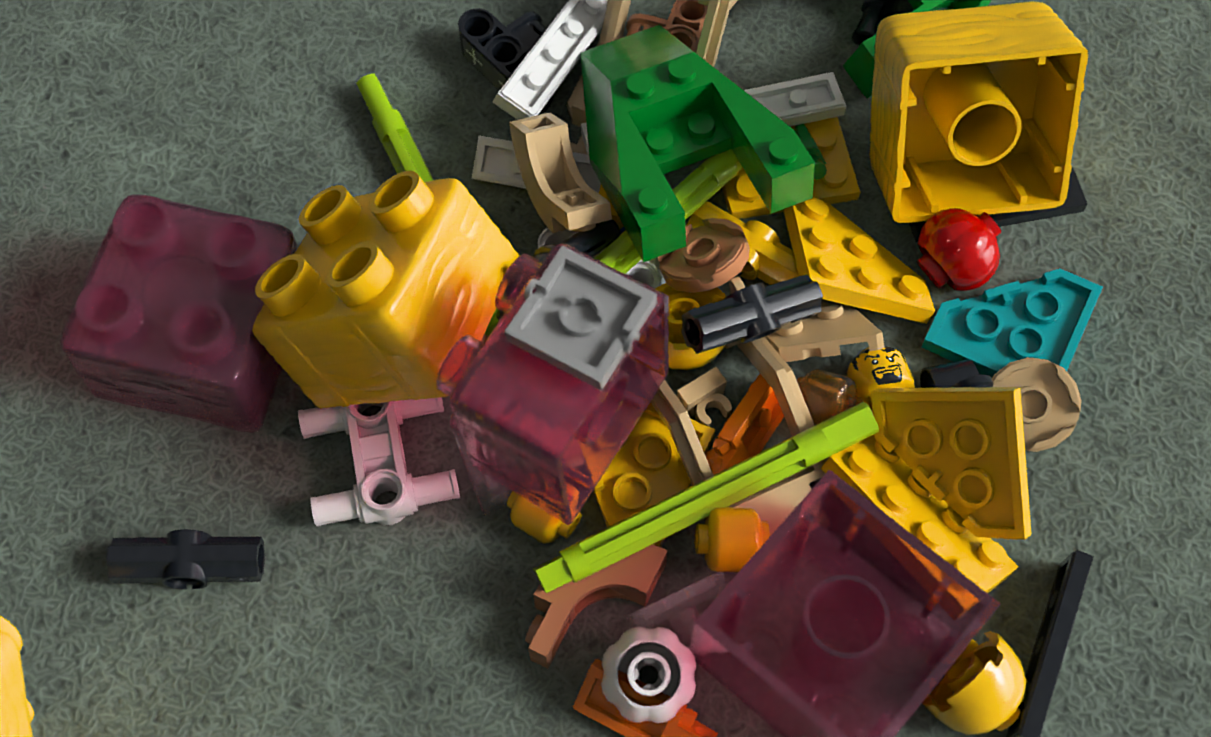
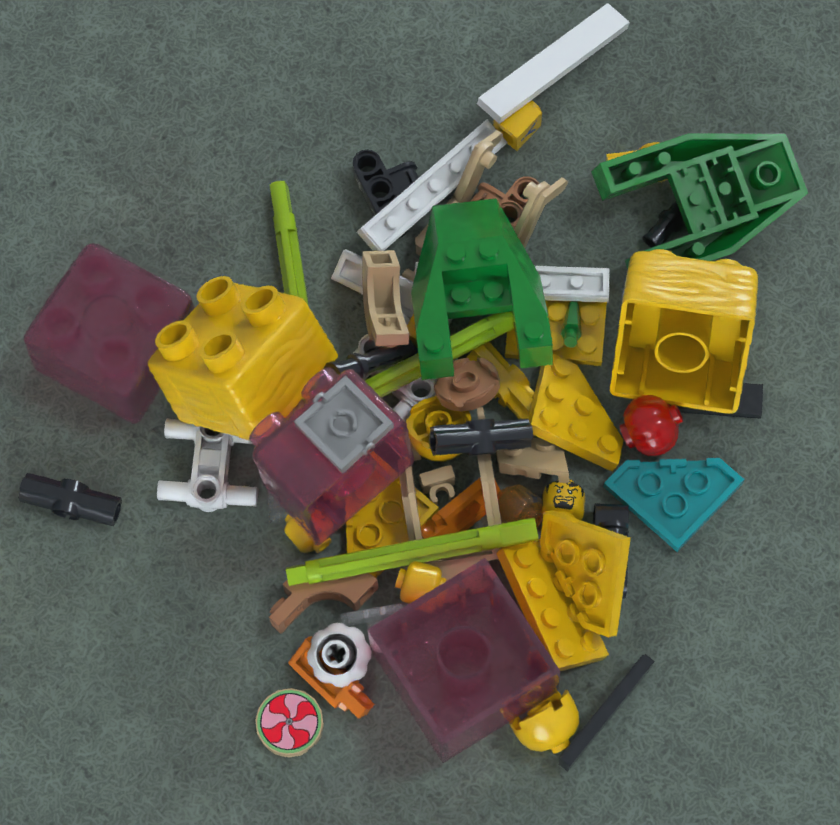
camera: 20 degrees right, 5 degrees up
(1047, 399) = (660, 548): tan tile -> none

